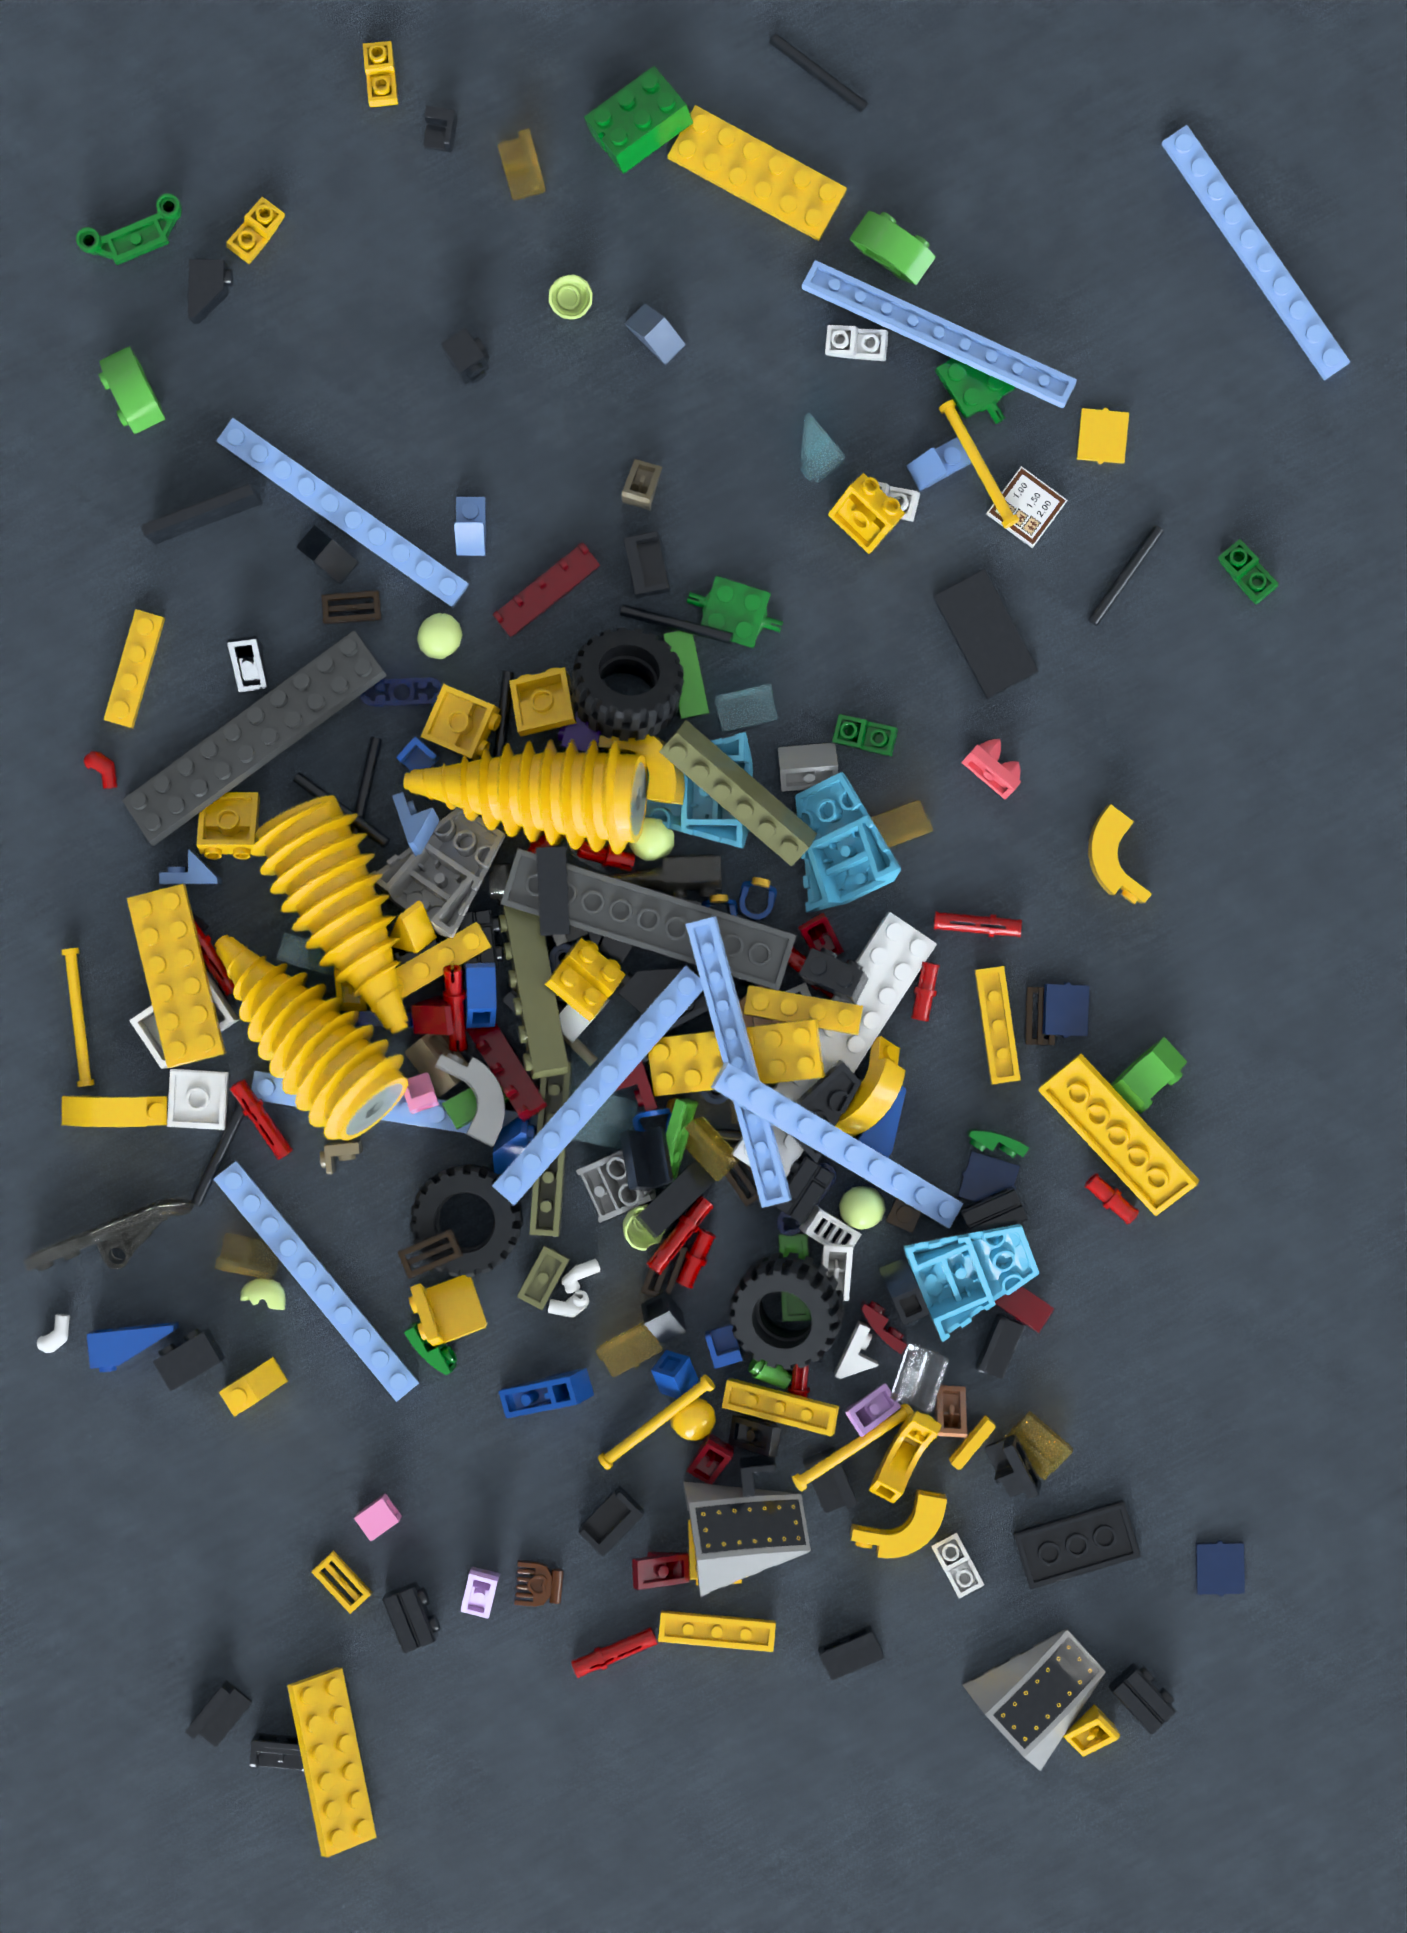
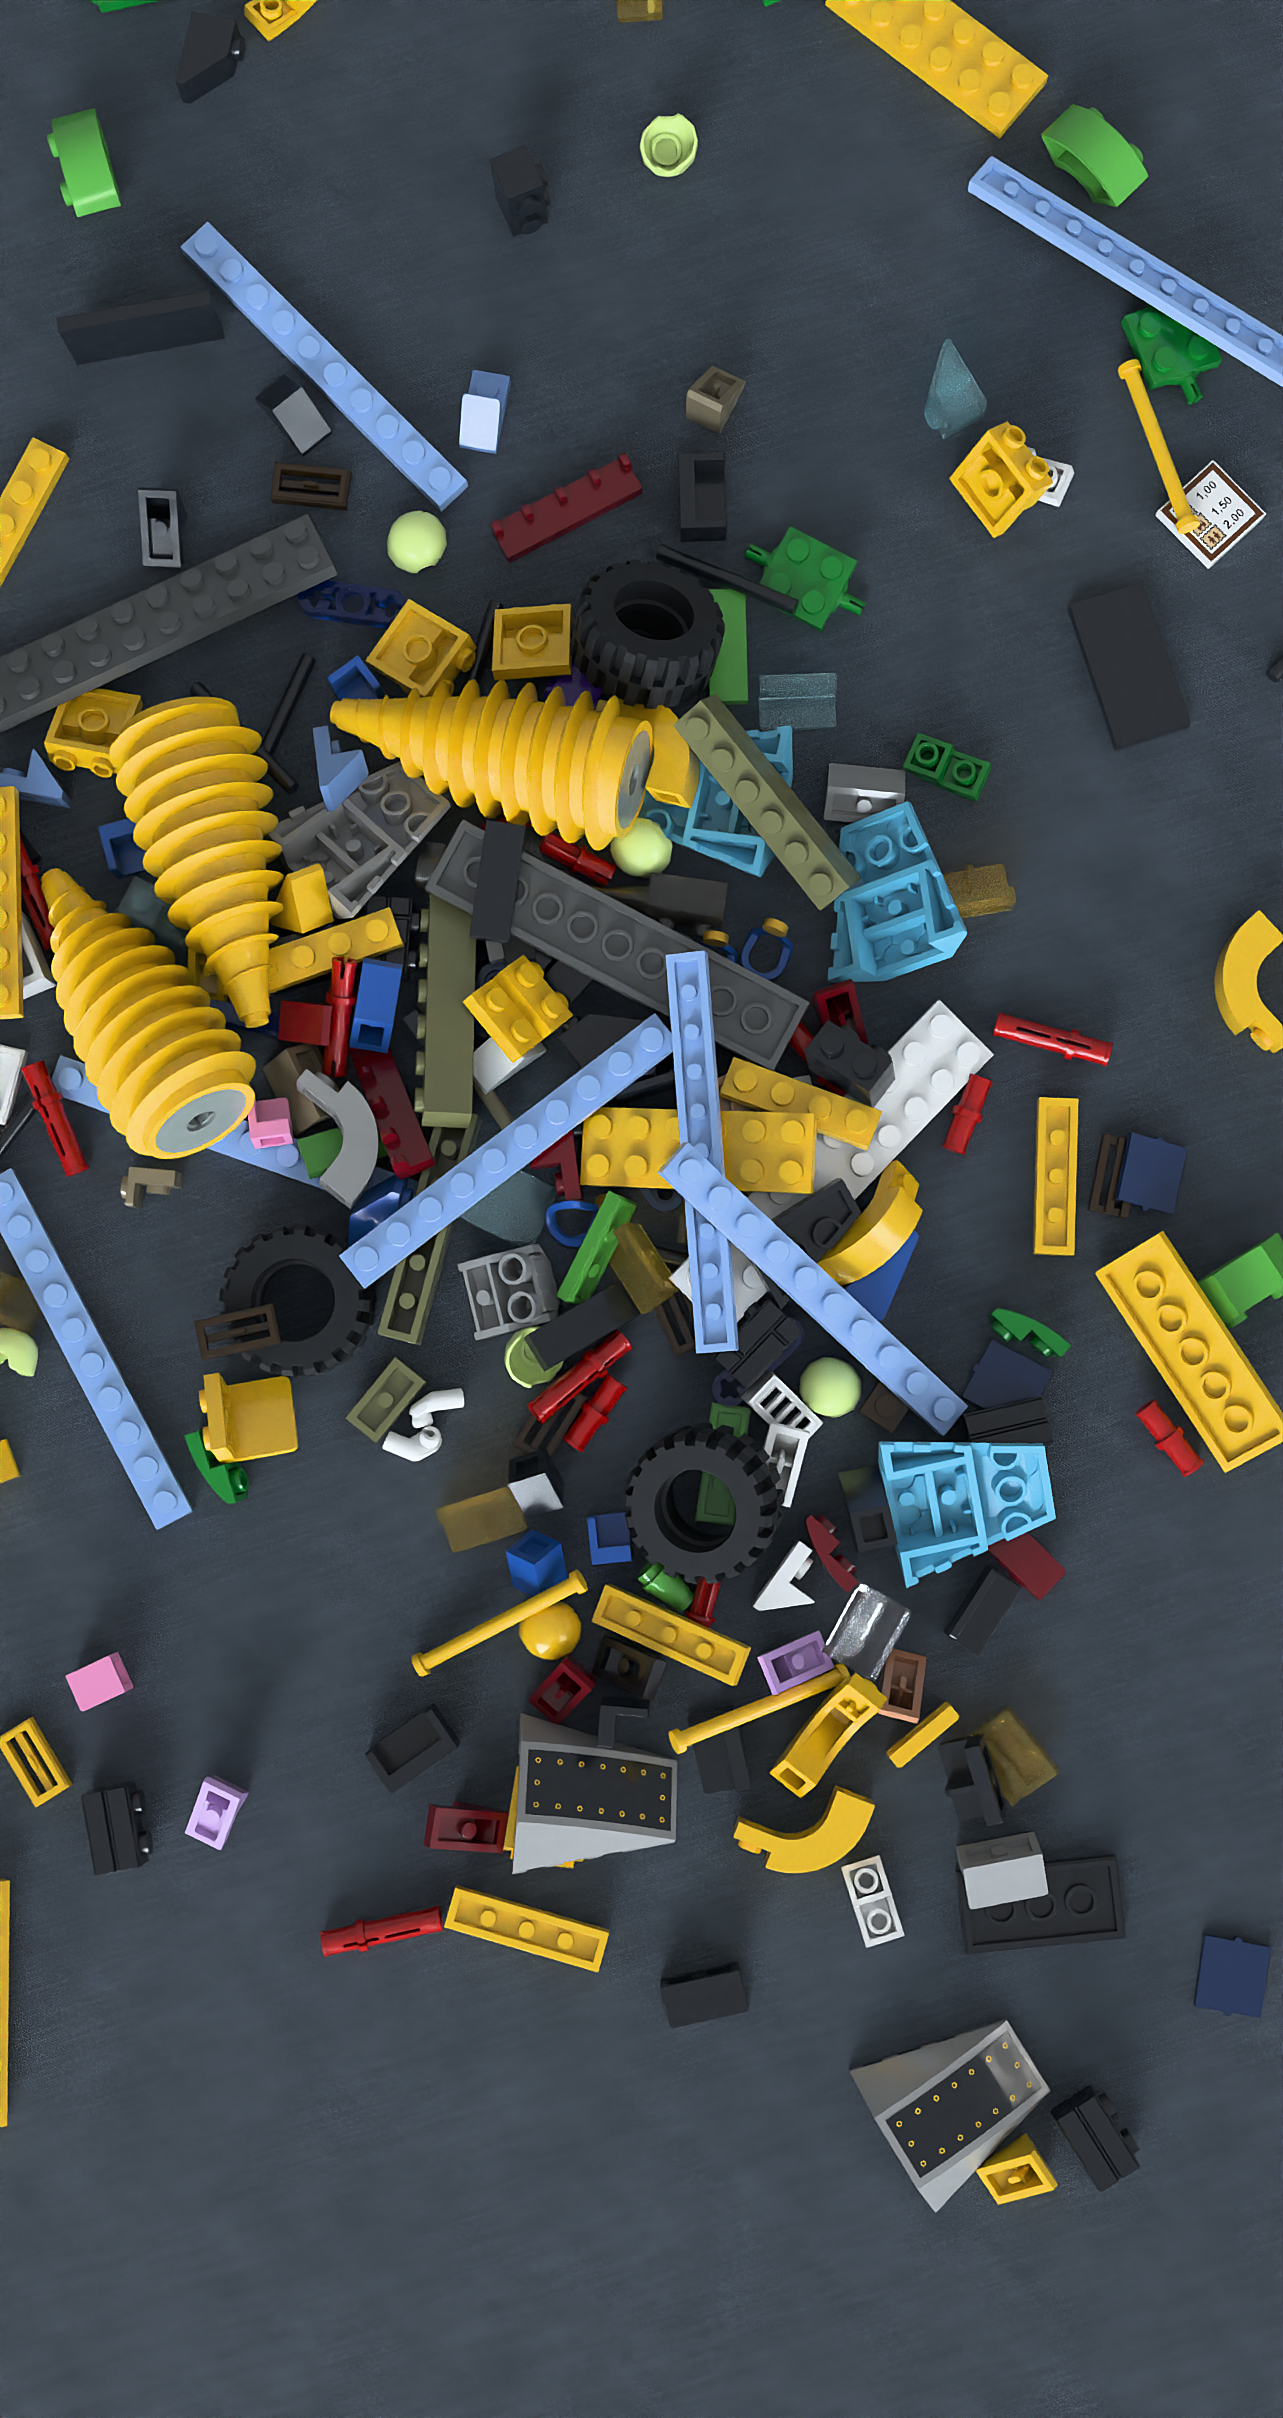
camera: 20 degrees right, 5 degrees down
(268, 909) = (120, 849): none -> blue panel
(541, 1585) = (300, 1819): reddish brown piece -> none
(547, 1393) = (360, 1557): blue slope -> none
(646, 1158) = (554, 1263): black panel -> none
(655, 333) = (770, 213): sand blue slope -> none
(856, 343) = (1025, 272): white slope -> none
(938, 463) = (1104, 439): medium blue slope -> none
(984, 764) = (1099, 833): coral tile -> none
(1045, 1526) = (1002, 1870): none -> light grey panel

